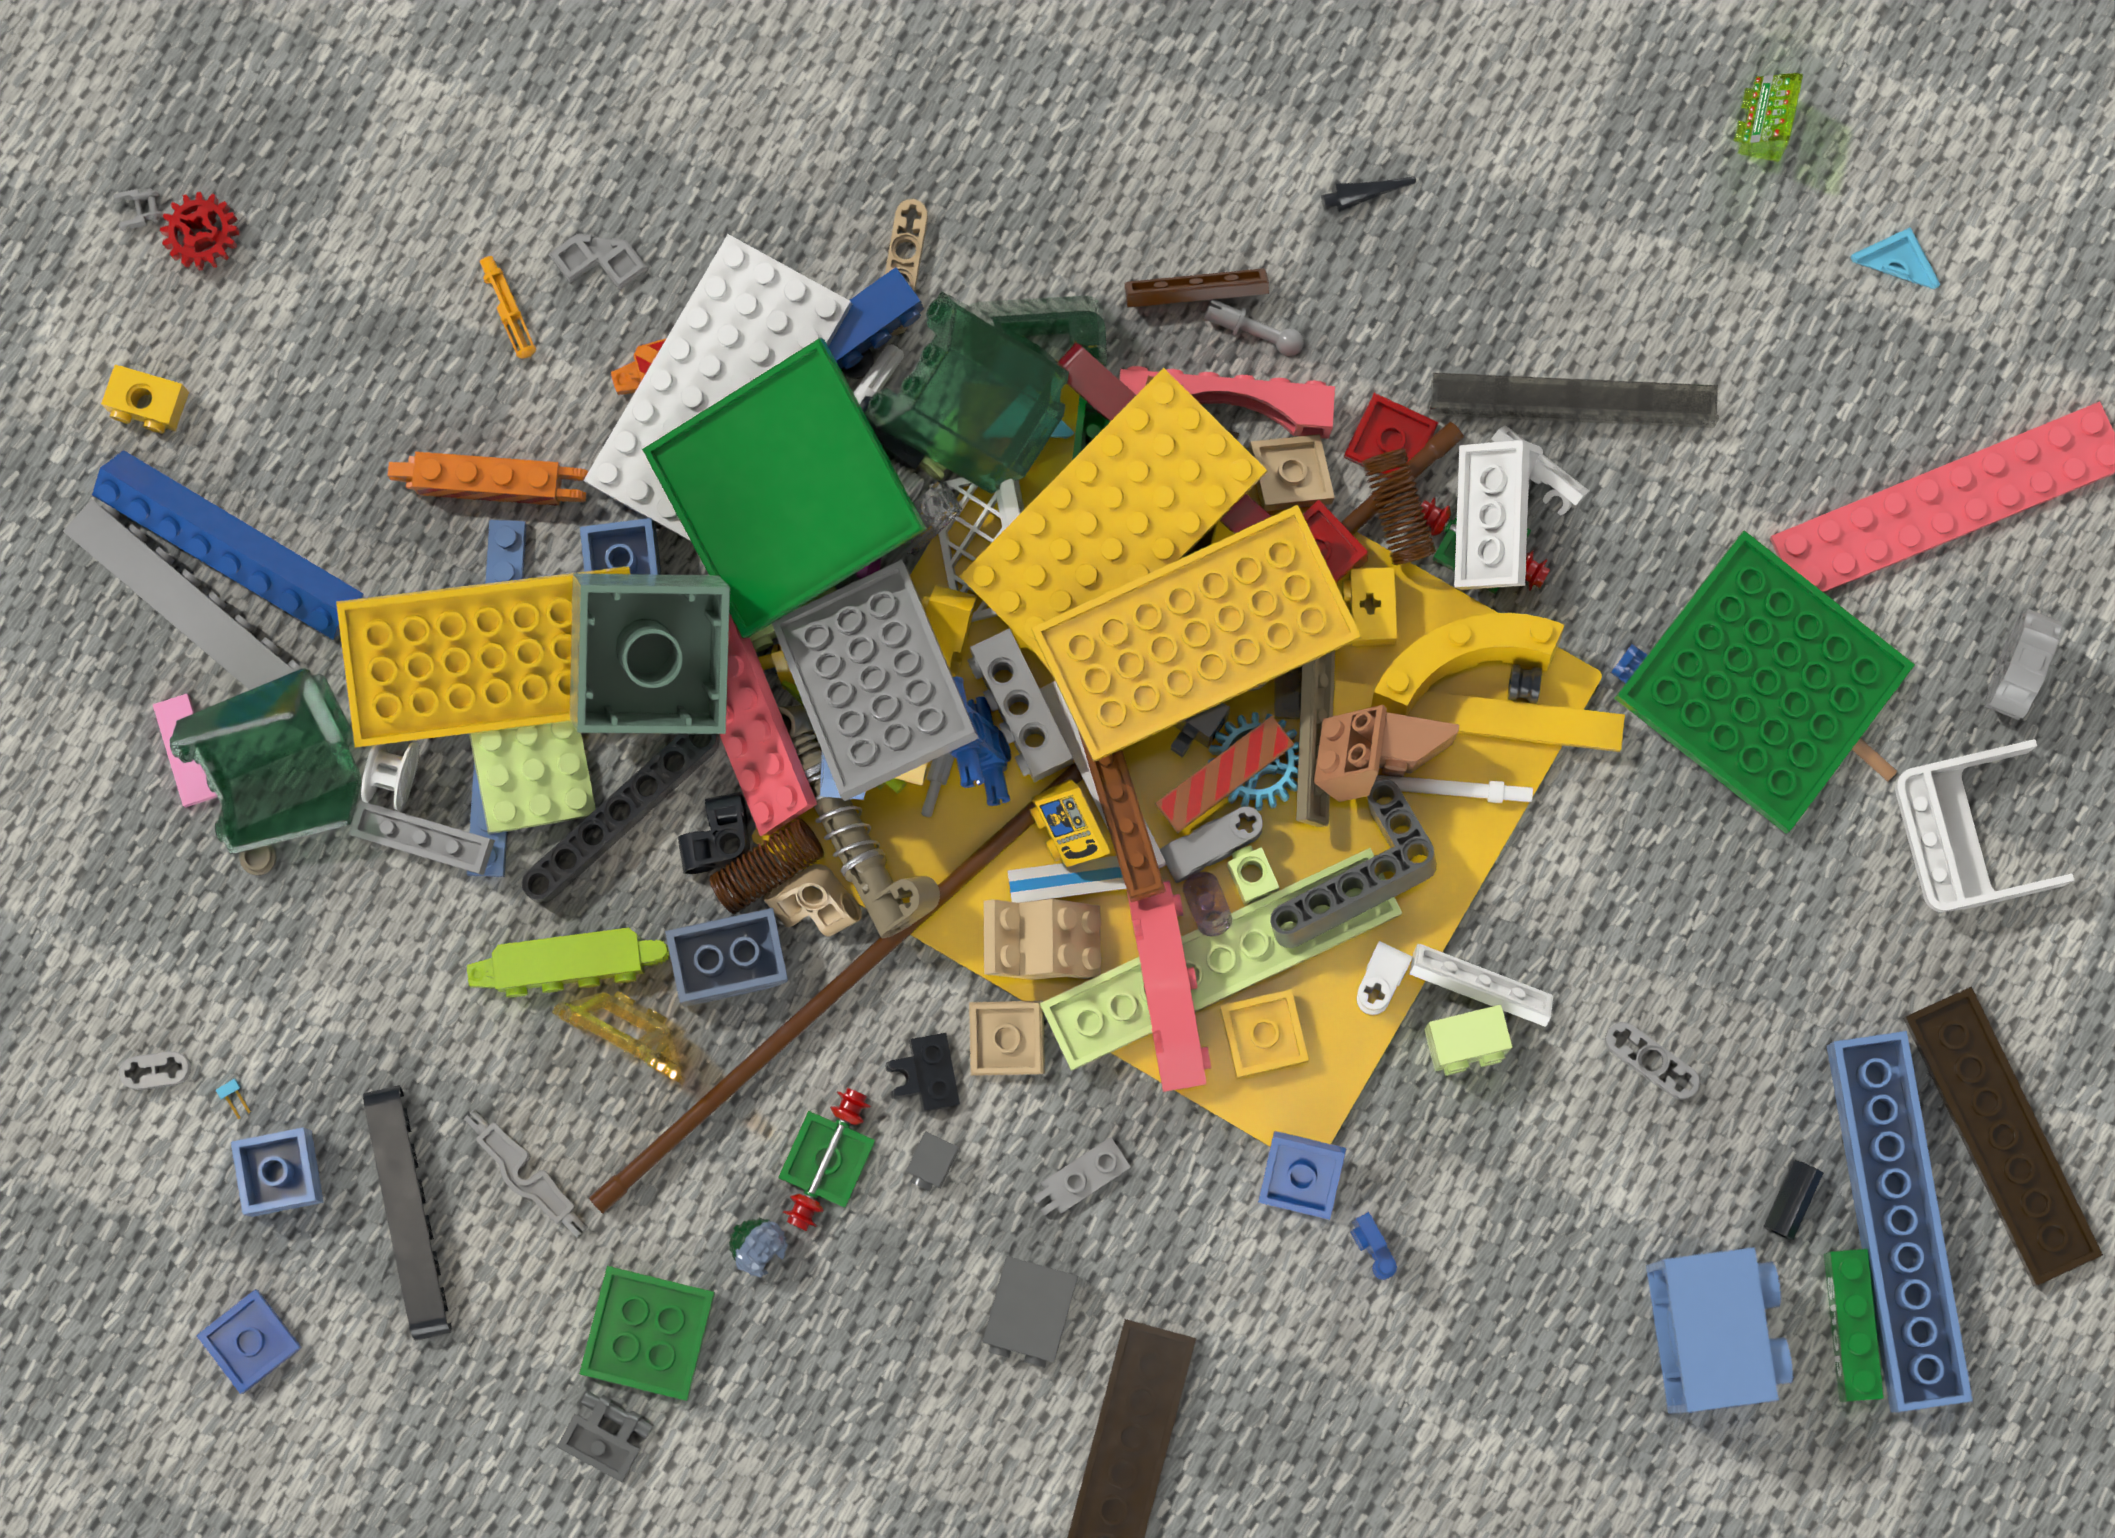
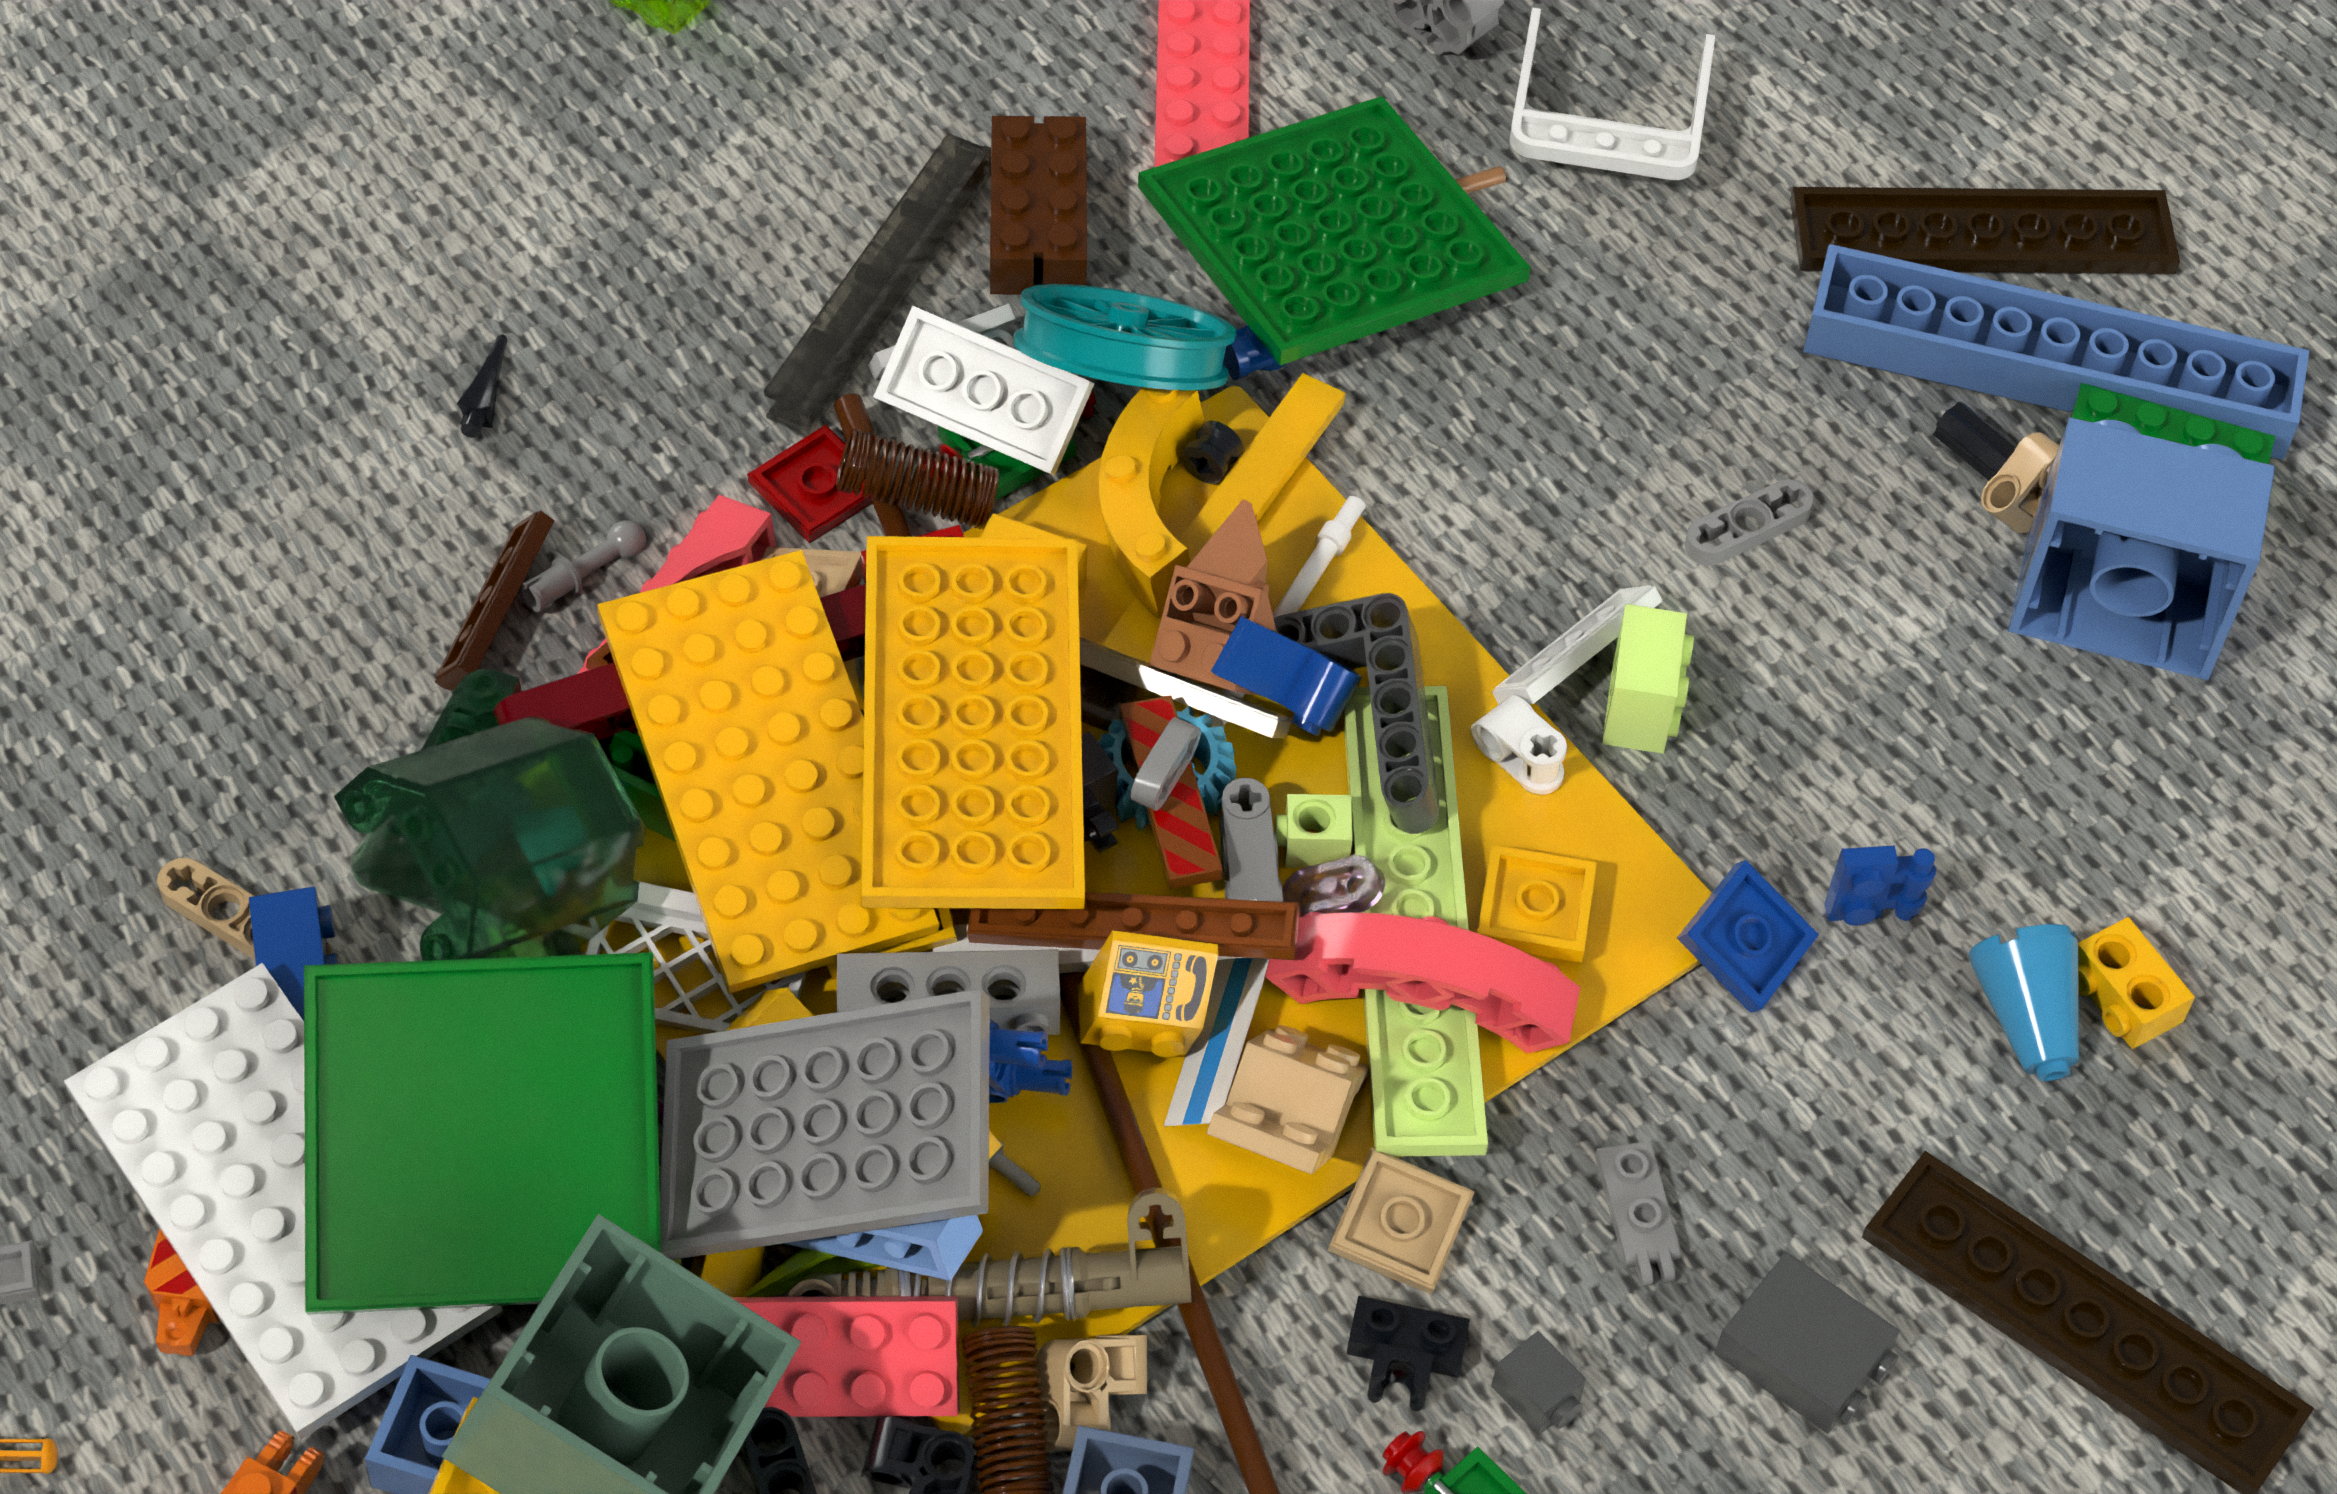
camera: 75 degrees left, 25 degrees down
(1230, 764) = (1165, 764): none -> light grey beam
(1338, 1372) = (2034, 995): none -> dark azure cone
(1353, 826) = (1287, 674): none -> blue door
(1390, 1435) = (2138, 978): none -> yellow brick
(1574, 587) = (1124, 337): none -> teal wheel
(1691, 473) = (1037, 202): none -> reddish brown piece
(1772, 1242) = (2019, 484): none -> tan piece

